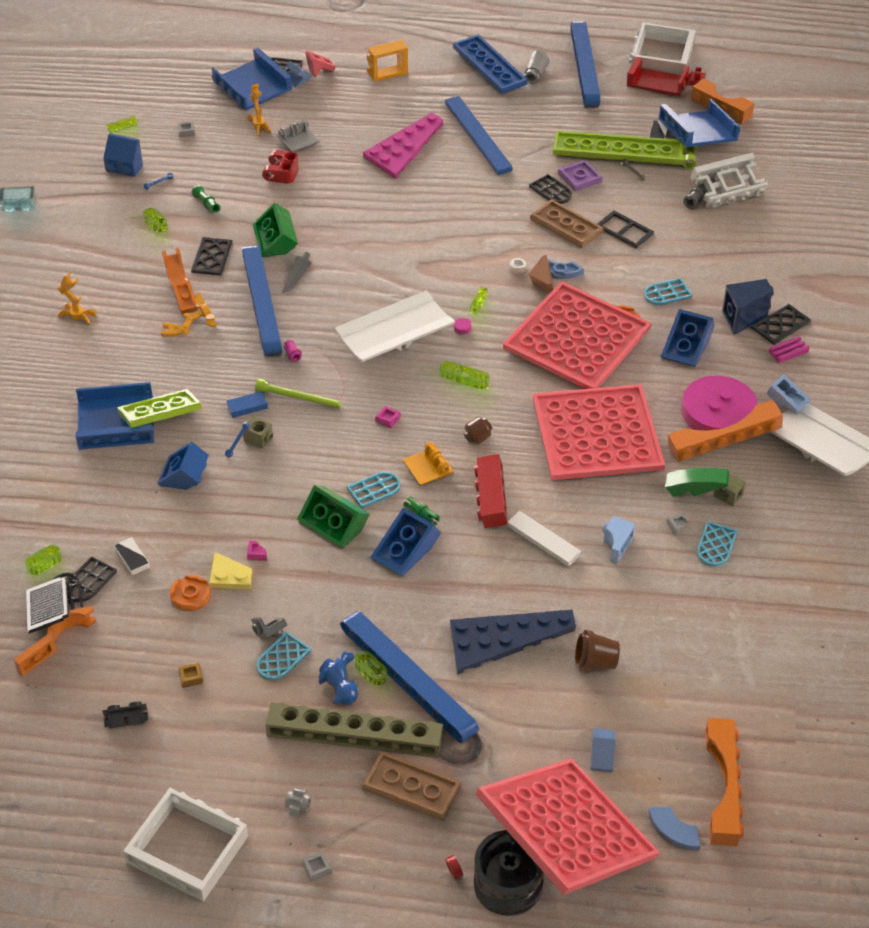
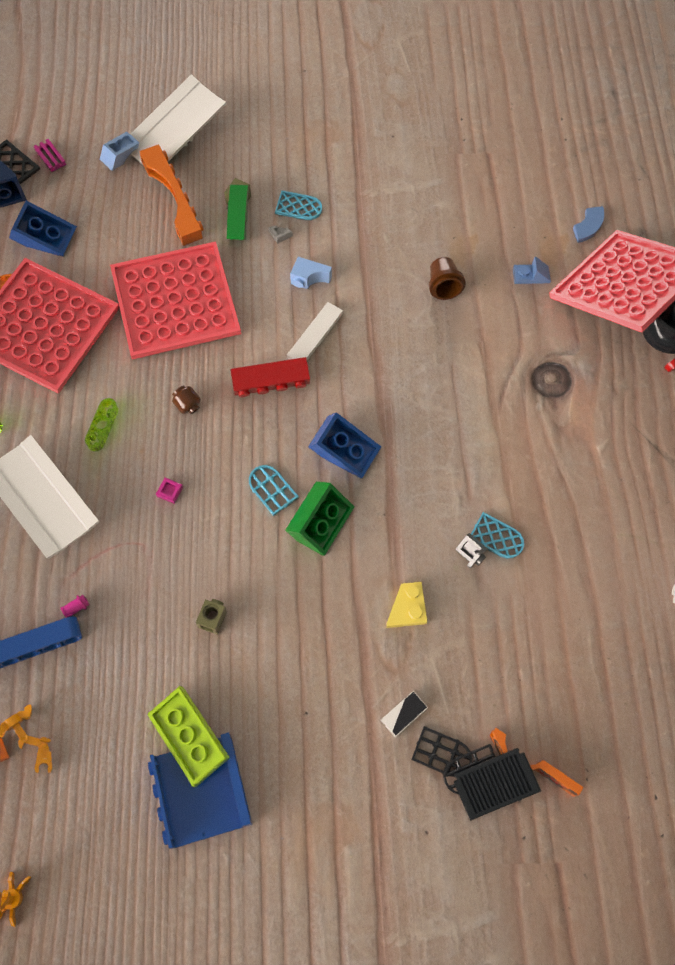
camera: 100 degrees left, 20 degrees up
(43, 559) = (423, 816): clear neon green beam -> none
(133, 712) = (598, 658): black hinge -> none
(184, 467) = (275, 687): blue slope -> none
(190, 593) = (439, 640): orange tile -> none
(190, 675) = (538, 616): pearl gold tile -> none
(229, 452) = (240, 643): blue hinge -> none
(247, 404) = (163, 641): blue tile -> none
(256, 552) = (374, 586): dark pink tile -> none
(263, 386) = (137, 626): lime piece -> none
(297, 801) = (653, 489): light grey gear -> none
(336, 675) = (513, 482): blue animal -> none
(363, 737) = (565, 395): olive brick -> none
(368, 670) = (490, 454): clear neon green beam -> none
(410, 677) = (495, 425): blue beam -> none
(412, 785) = (604, 408): medium nougat tile -> none
(421, 510) = (299, 438): green pin -> none
(428, 465) = (236, 442): light orange hinge -> none
(462, 326) = (22, 433): dark pink tile -> none
(499, 636) = (435, 361): dark blue wing -> none
(716, 402) = (132, 205): dark pink brick -> none
(725, 819) = (574, 189): orange arch -> none

